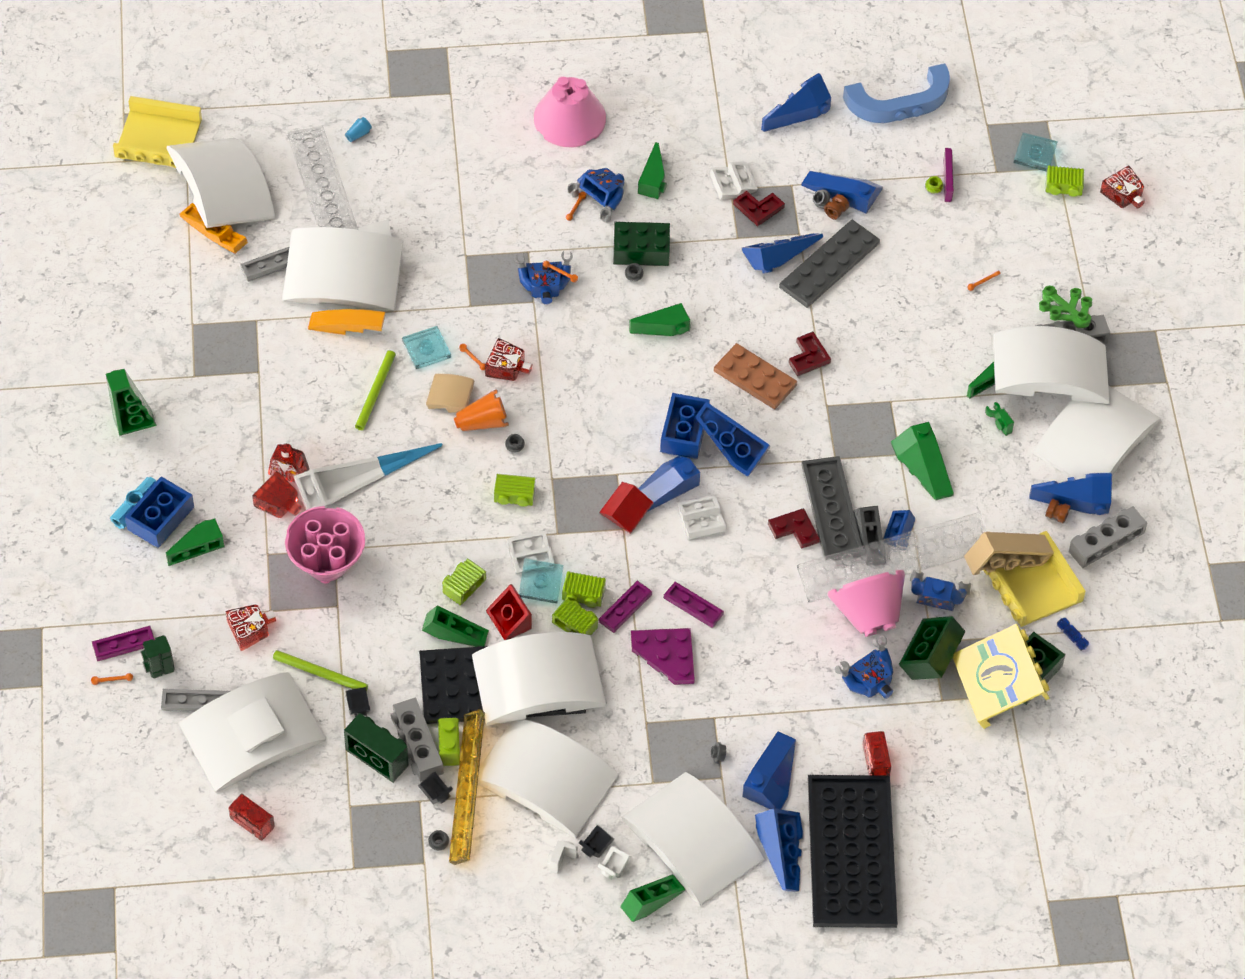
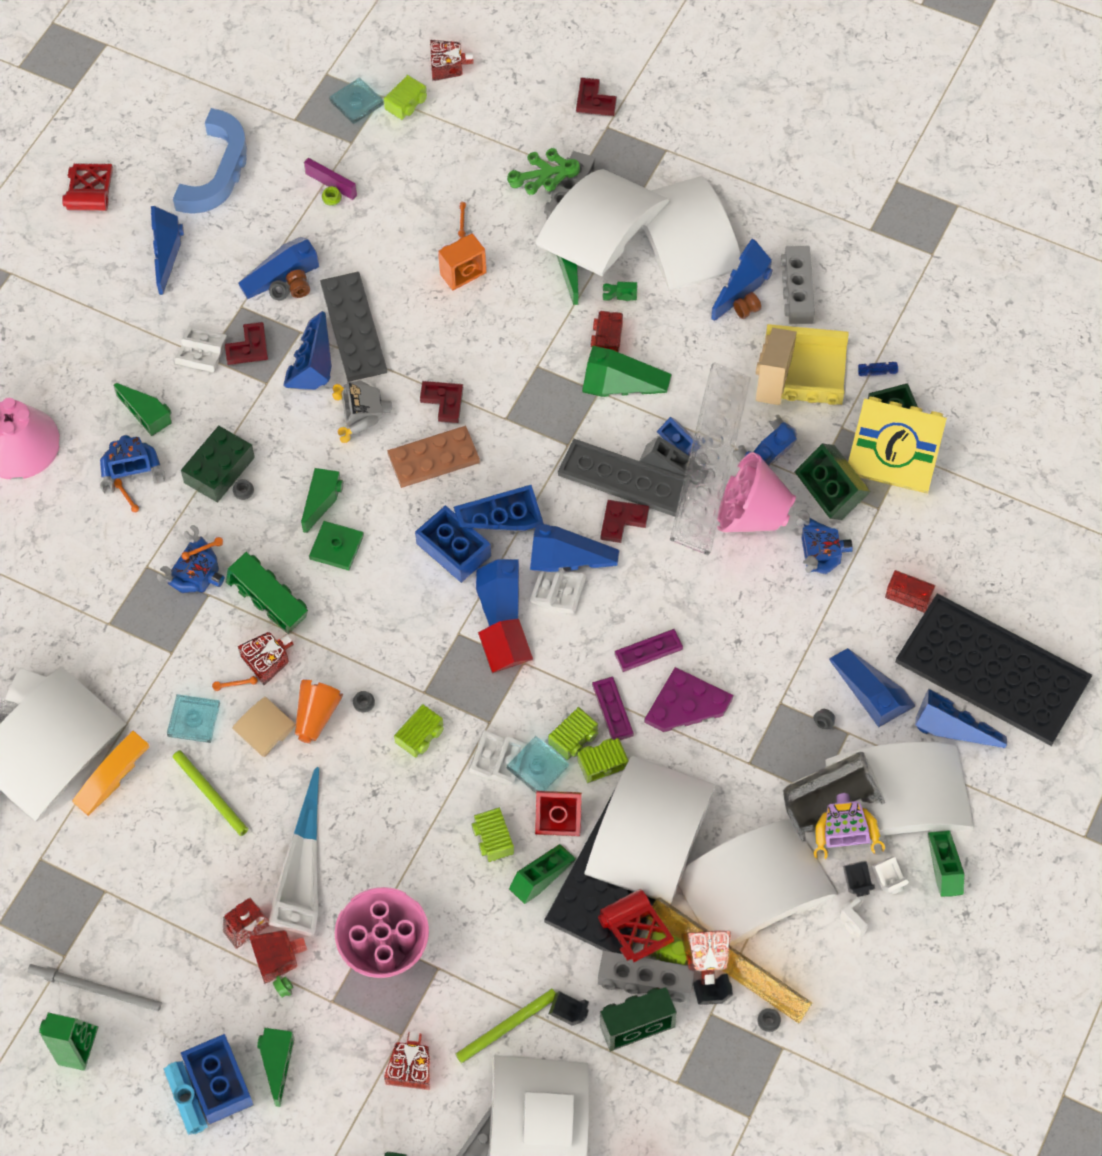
camera: 55 degrees left, 5 degrees up
(174, 376) = (51, 974): none -> light grey bar
(256, 515) = (283, 986): none -> bright green plate
(455, 696) = (628, 913): none -> red piece
(455, 761) = (707, 952): none -> clear red torso
(555, 331) = (266, 592): none -> green wedge
(630, 806) = (846, 825): none -> torso
(631, 356) = (336, 545): none -> green plate
(647, 779) = (811, 795): none -> clear smoke windscreen
(735, 499) = (561, 548): none -> blue wedge
(758, 305) = (361, 407): none -> light grey torso
(808, 38) = (88, 197): none -> red piece
(937, 297) = (462, 261): none -> orange slope
(954, 430) = (608, 330): none -> clear red brick
(1168, 305) = (593, 103): none -> dark red plate

